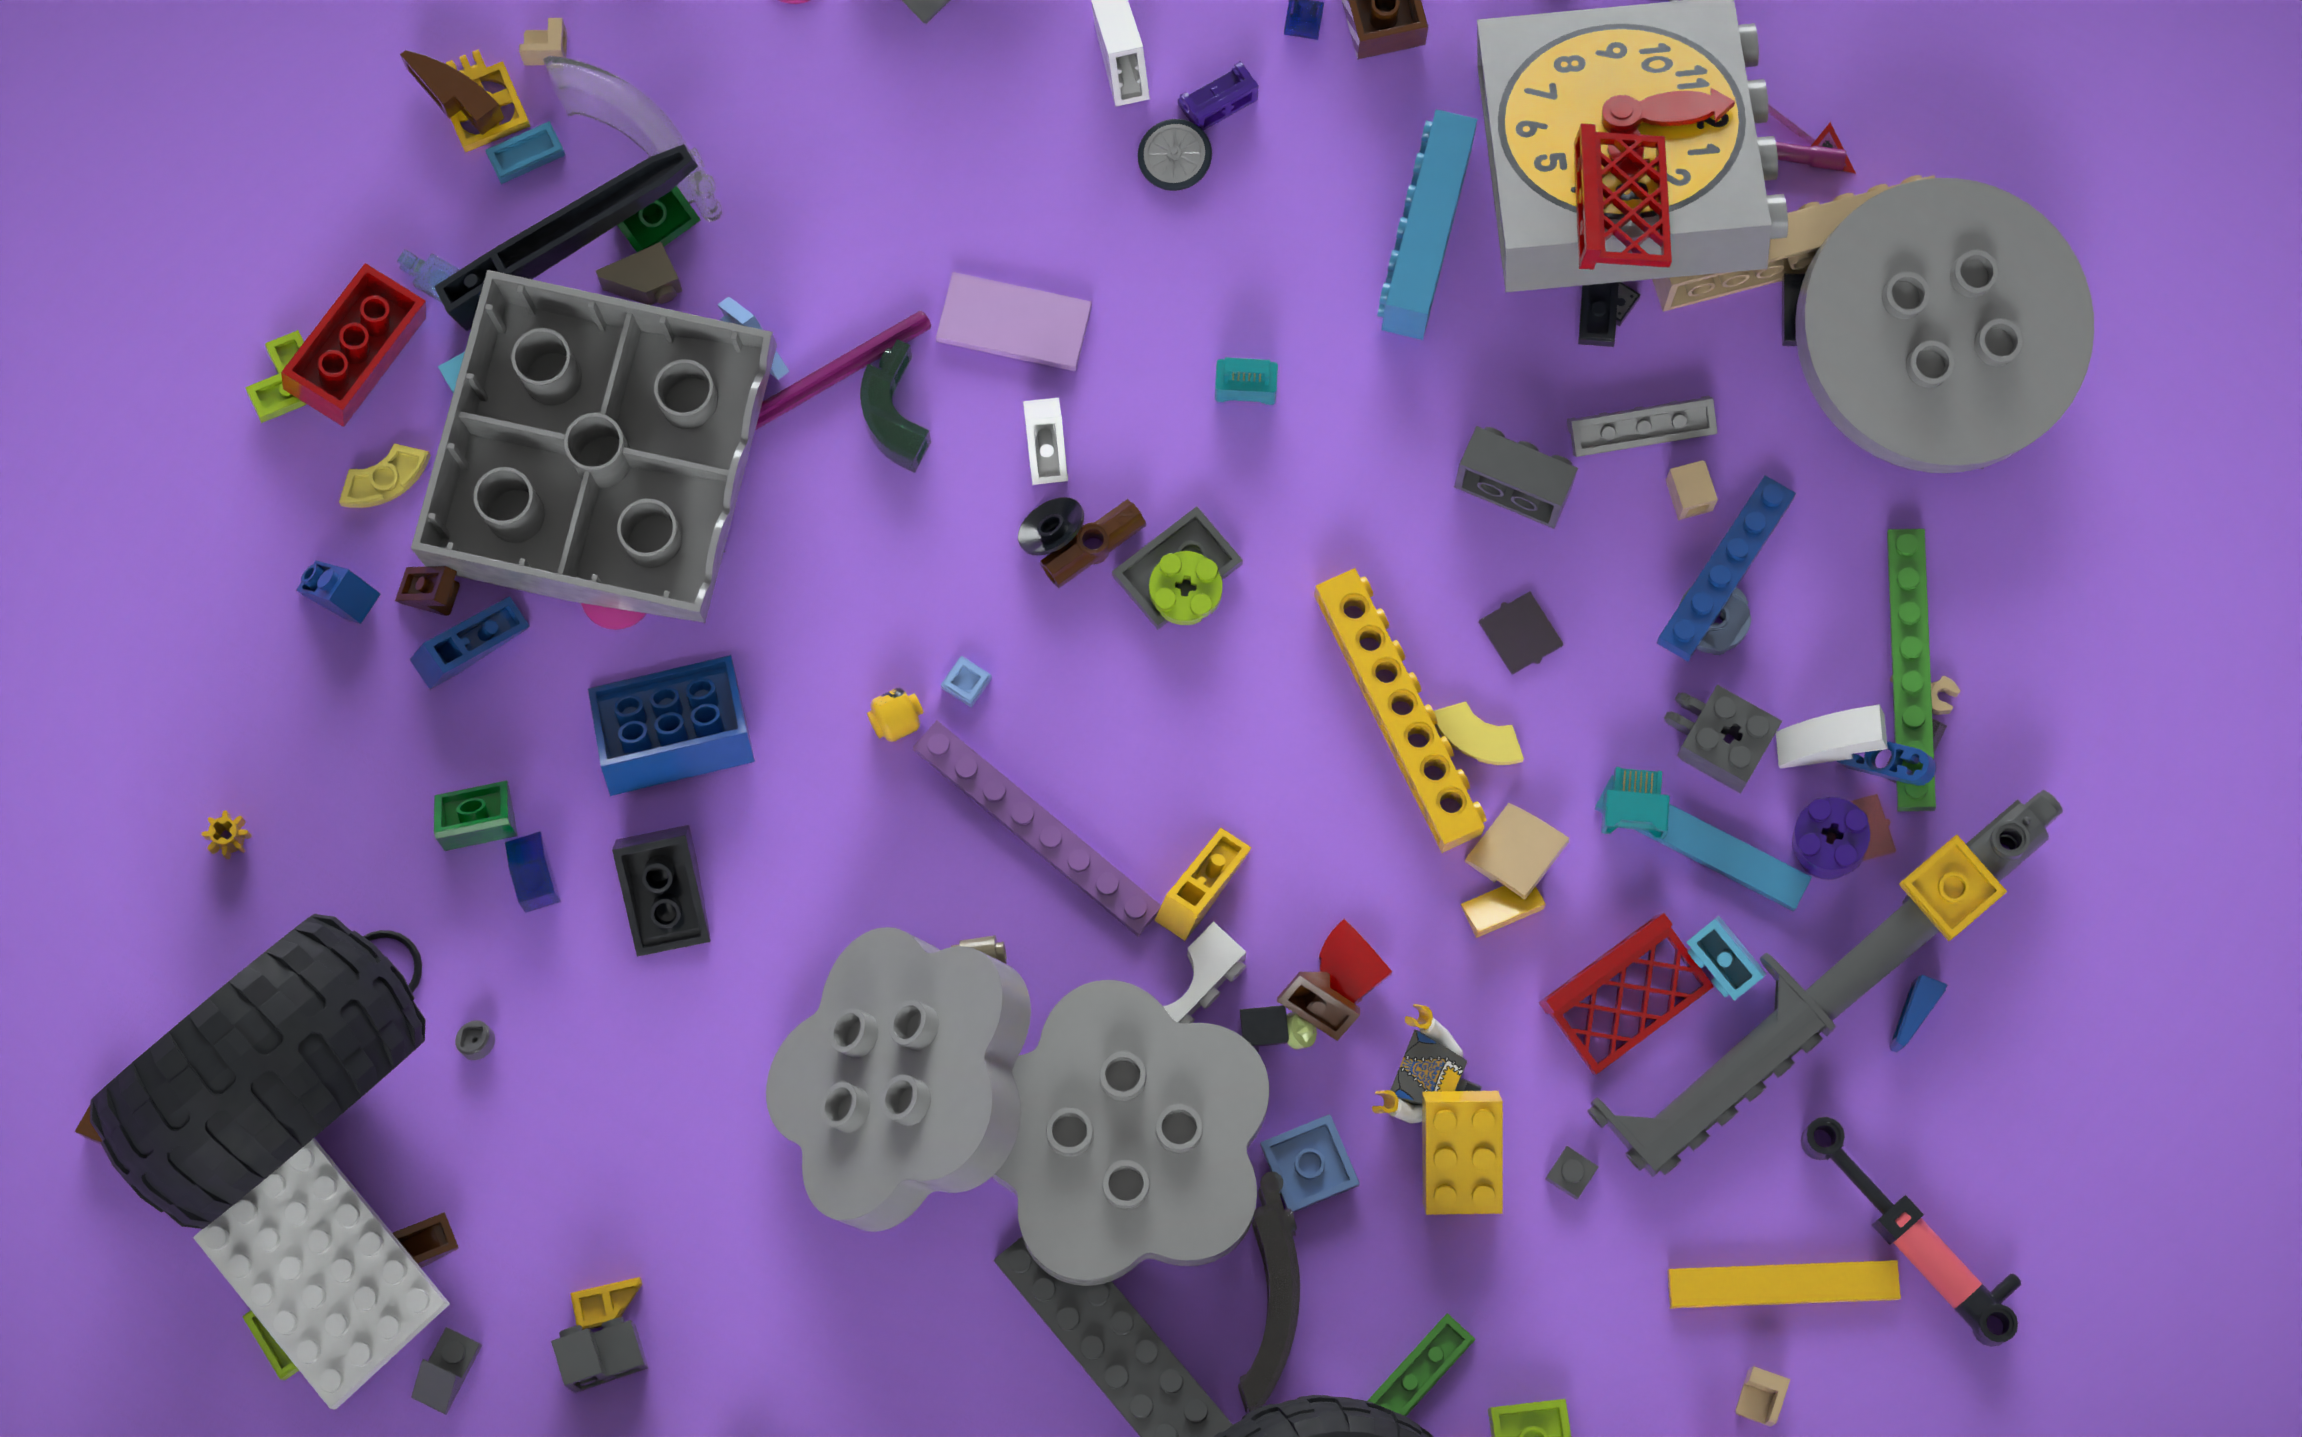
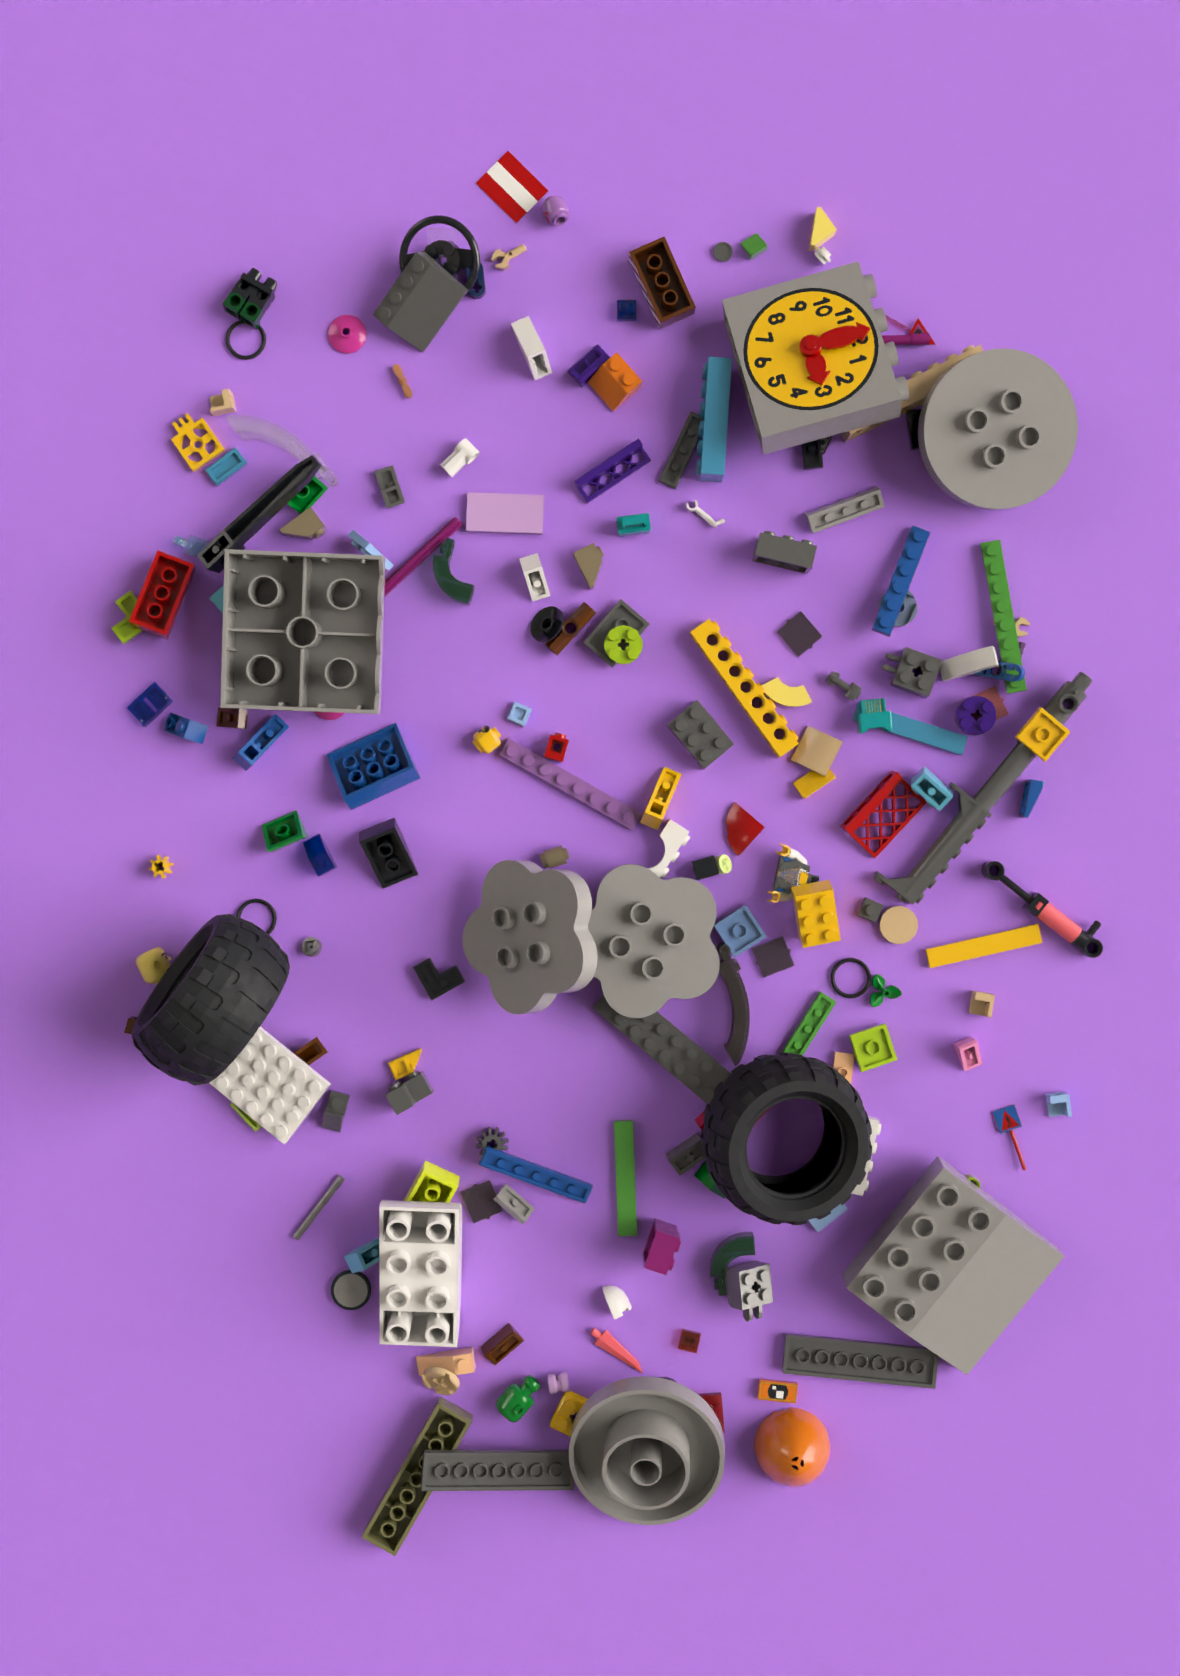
camera: 15 degrees left, 15 degrees up
(160, 1009) = (153, 964): none -> light yellow piece
(266, 548) = (143, 711): none -> clear blue piece
(384, 480) = (196, 662): light yellow tile -> none
(453, 91) = (180, 441): reddish brown slope -> none
(703, 1156) = (436, 983): none -> black plate
(813, 238) = (389, 487): none -> dark grey slope
(876, 65) = (402, 381): none -> nougat piece
(959, 205) = (463, 454): none -> white piece
(1022, 738) = (551, 753): none -> red brick
(1152, 433) = (589, 562): none -> dark tan slope
(1174, 154) = (571, 403): light grey wheel -> none
(1219, 270) = (607, 465): none -> dark purple fence
(1260, 131) = (615, 382): none -> orange slope
(1300, 778) = (700, 734): none -> dark grey brick
(1317, 1003) = (730, 851): reddish brown slope -> none
(1357, 276) = (681, 452): none -> dark grey tile
(1365, 1229) = (773, 956): none -> clear smoke piece
(1383, 394) = (705, 516): none -> white piece
(1506, 1334) = (867, 983): none -> black tyre
(1586, 1341) = (877, 997): none -> green plant
(1590, 203) = (802, 401): red fence -> none
(1603, 753) = (852, 690): none -> dark grey bar
(1621, 1211) = (898, 924): none -> tan tile
(1691, 489) = (875, 540): tan panel -> none

